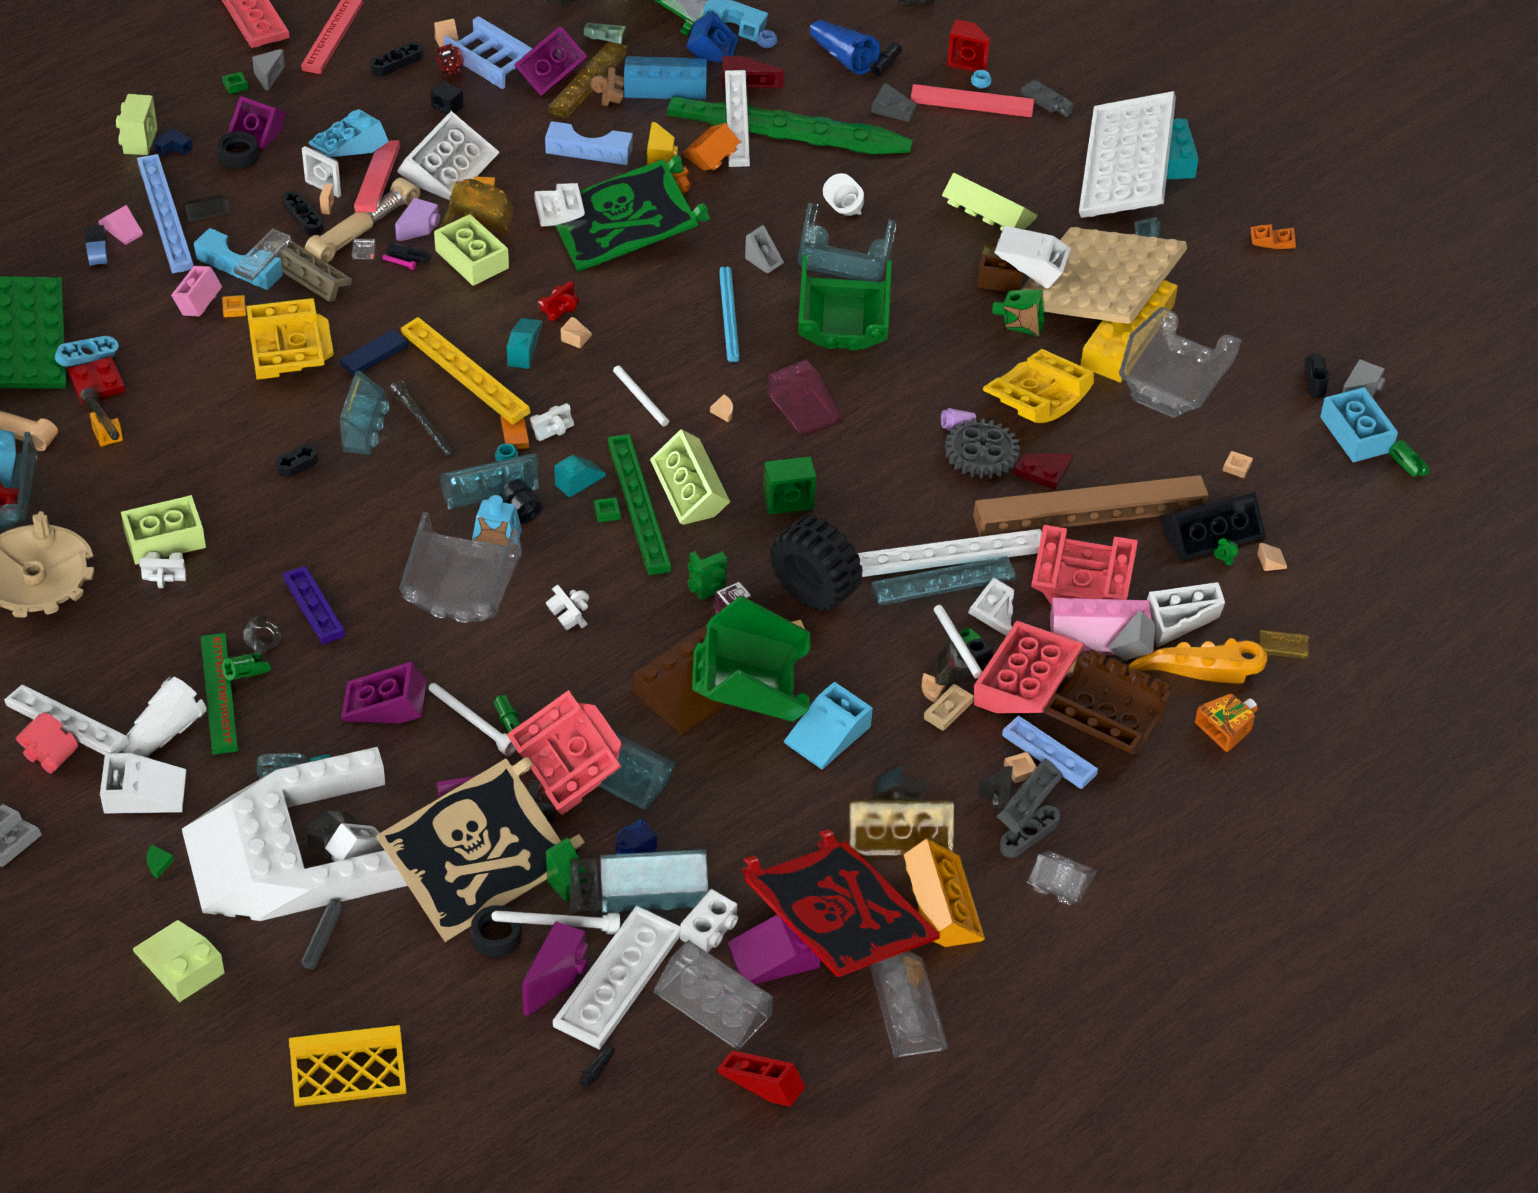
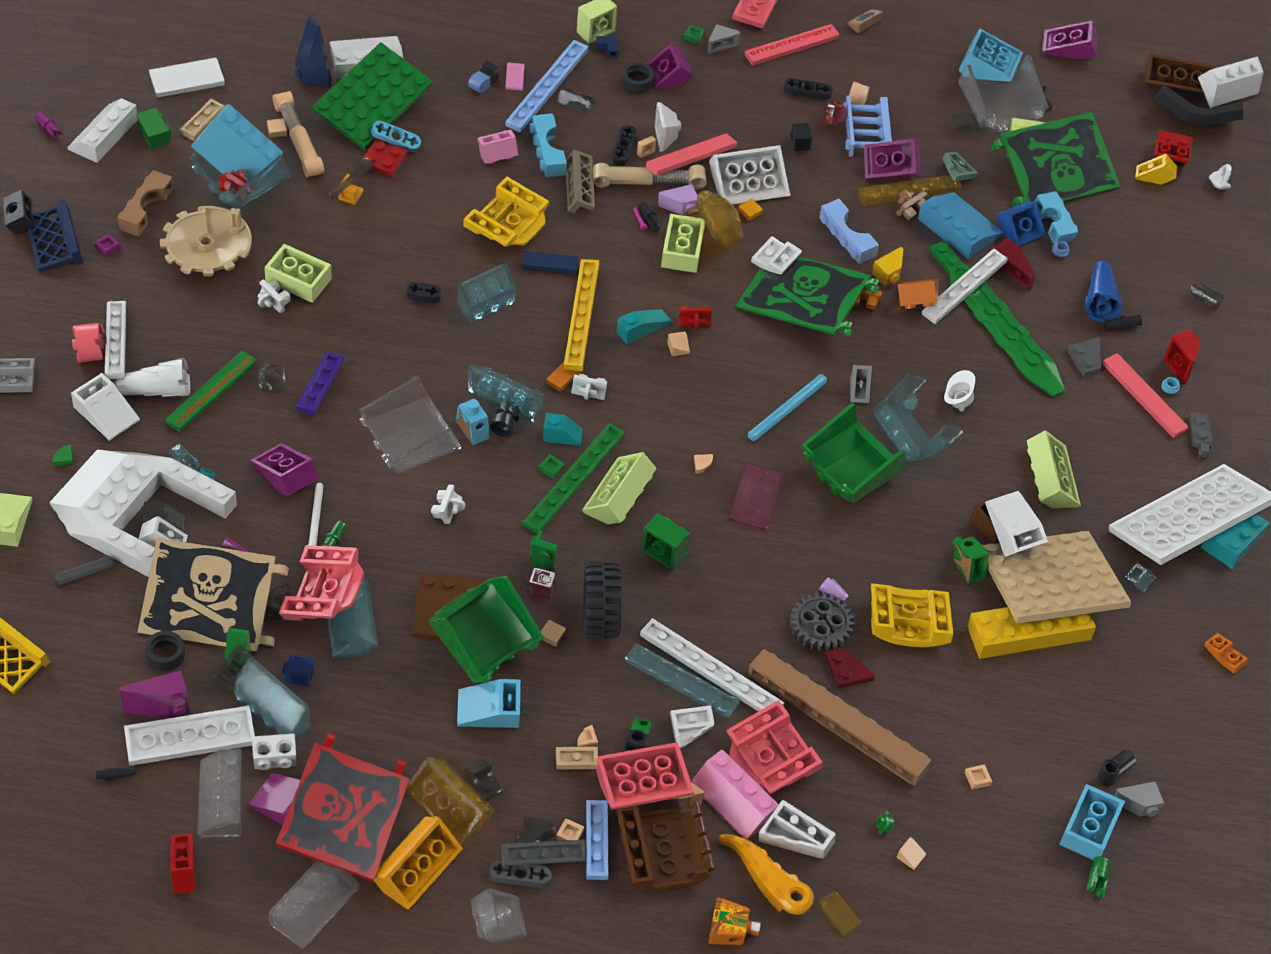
camera: 45 degrees right, 5 degrees up
(234, 306) = (513, 172): light orange tile -> none
(244, 666) = (240, 387): green hinge -> none
(262, 254) = (557, 152): clear tile -> none
(351, 136) = (706, 118): medium azure slope -> none
(363, 249) = (629, 194): clear tile -> none
(400, 391) = (532, 297): clear smoke piece -> none
(505, 451) = (539, 383): teal plate -> none
(608, 923) = (223, 701): white piece -> none
(641, 396) = (665, 414): white bar -> none
(949, 667) = (606, 736): clear smoke slope -> none
(958, 641) = (629, 722): white bar -> none
(1135, 638) = (740, 819): light grey slope -> none
(1171, 370) = (1017, 674): clear windscreen -> none
(1200, 527) = (905, 799): black slope -> none

